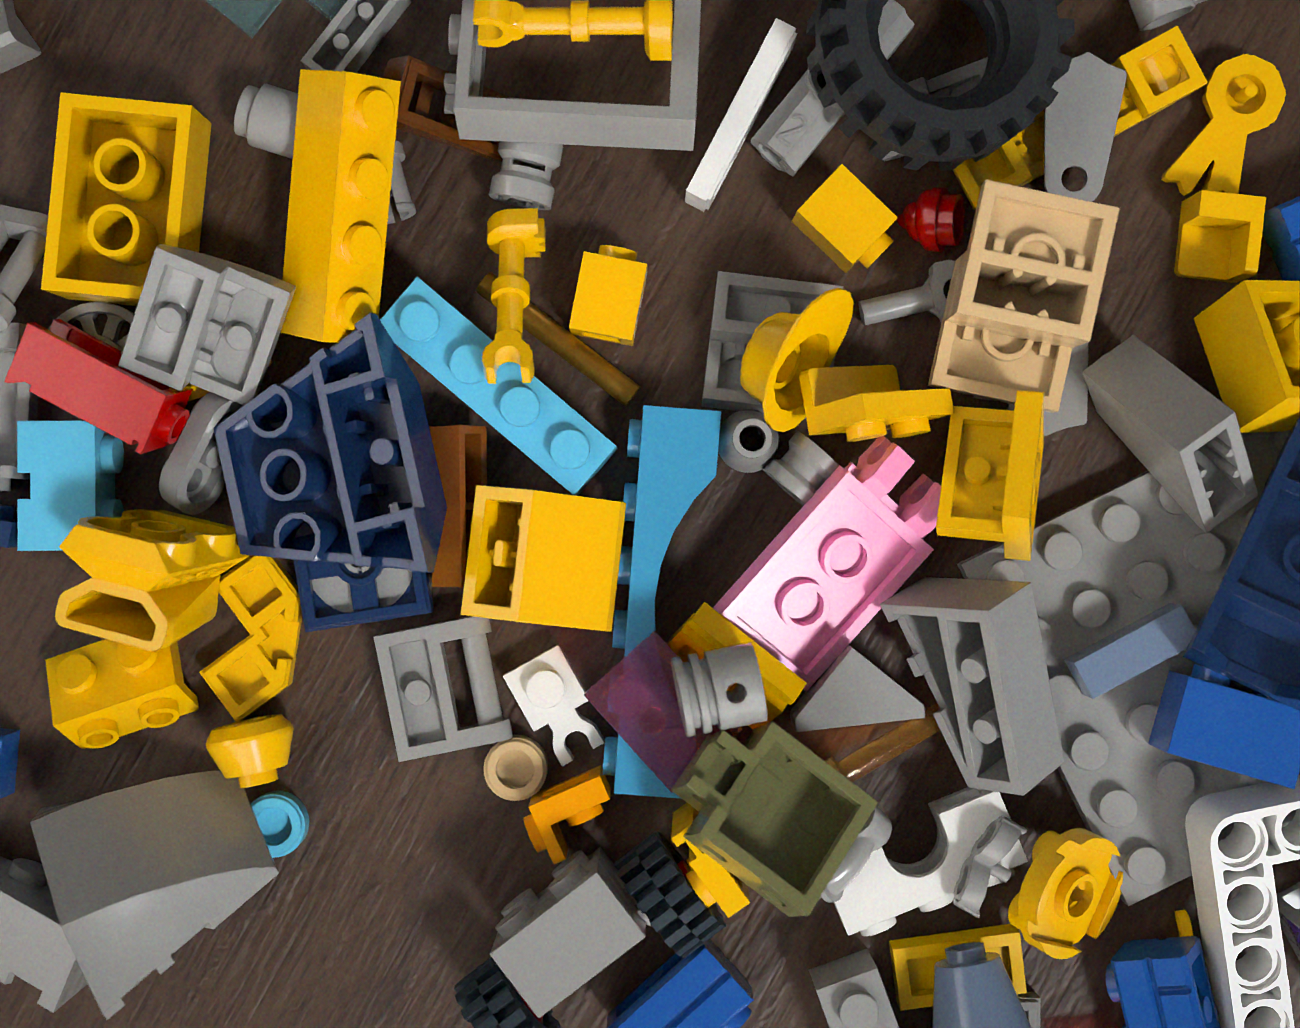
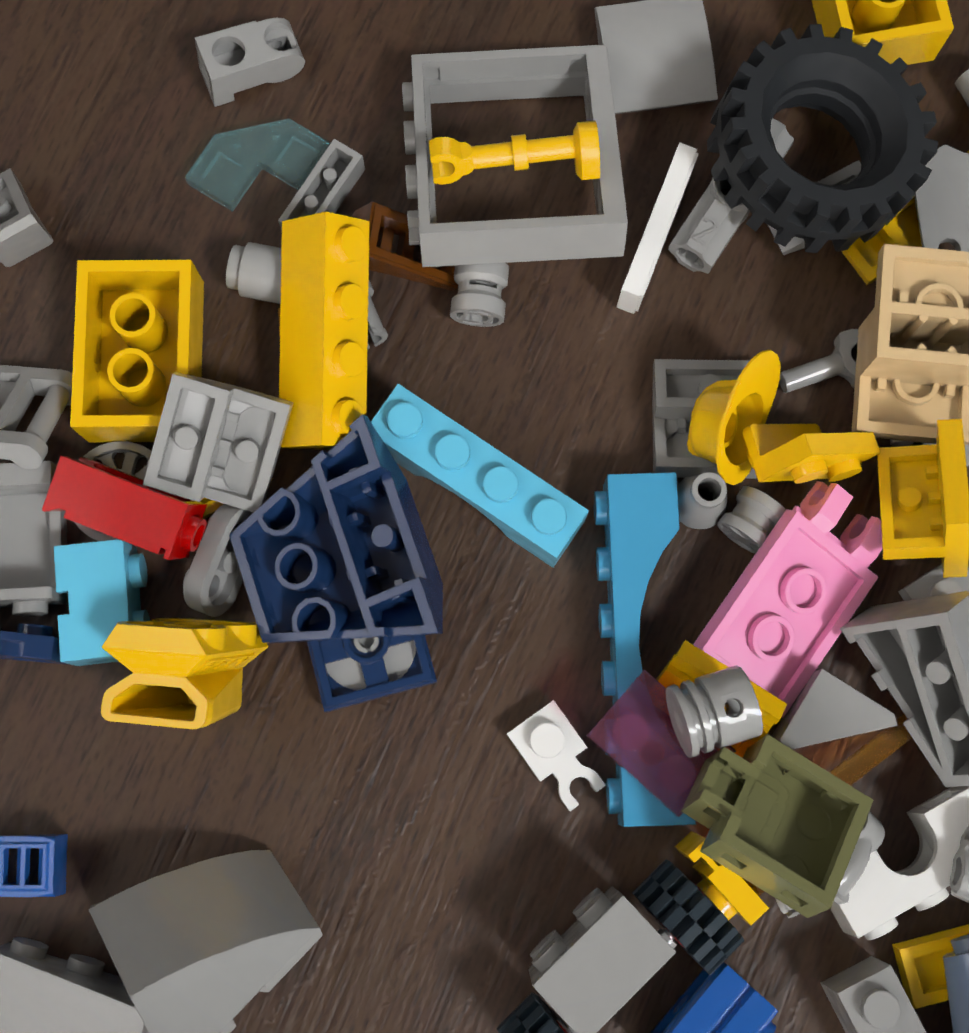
camera: 10 degrees left, 10 degrees down
(116, 691) = (157, 783): yellow bracket -> none
(251, 748) = (284, 824): yellow cone -> none
(264, 662) = (288, 743): yellow tile -> none
(282, 821) = (318, 891): medium azure tile -> none
(422, 692) = (434, 754): light grey plate -> none
(462, 466) = (453, 552): dark orange piece -> none
(513, 236) = (476, 348): yellow piece -> none
(516, 768) = (527, 818): tan tile -> none
(543, 558) = (534, 618): yellow slope -> none
(571, 349) = (521, 432): pearl gold bar -> none
(573, 800) = (585, 841): light orange bracket -> none
(608, 295) = (564, 389): yellow brick -> none
(846, 220) = (759, 304): yellow brick -> none
(935, 219) = (834, 296): red plate -> none

